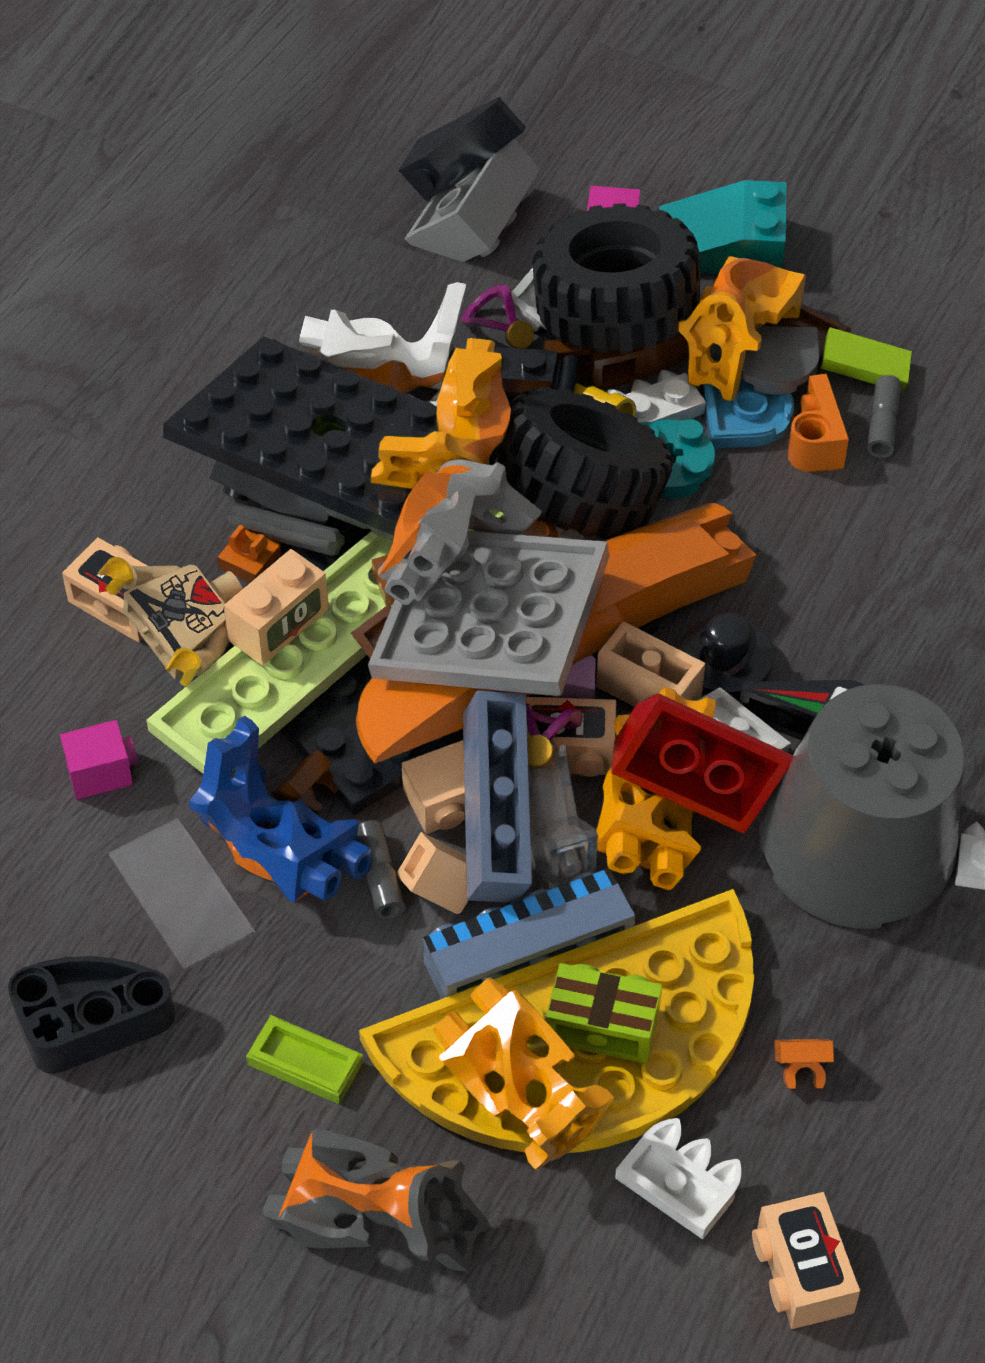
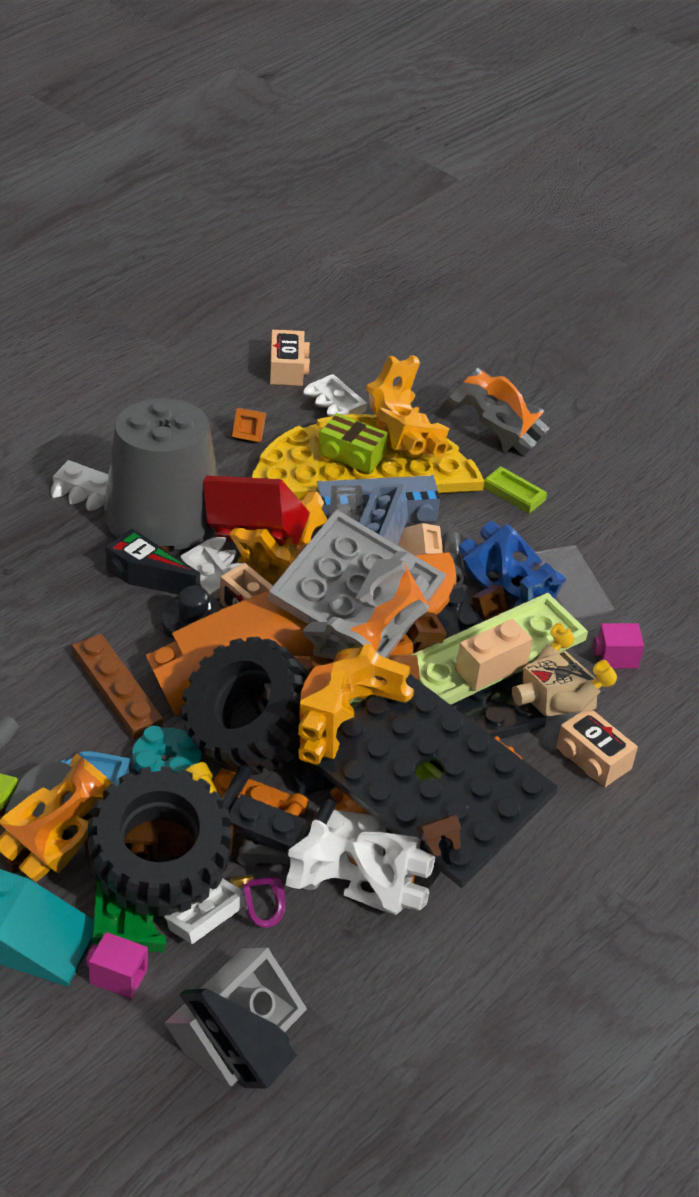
camera: 170 degrees left, 10 degrees down
(79, 993) = (633, 526): black beam -> none
(299, 340) = (432, 831): none -> reddish brown tile
(784, 539) = (117, 685): none -> dark orange plate
(818, 433) = (52, 736): orange plate -> none

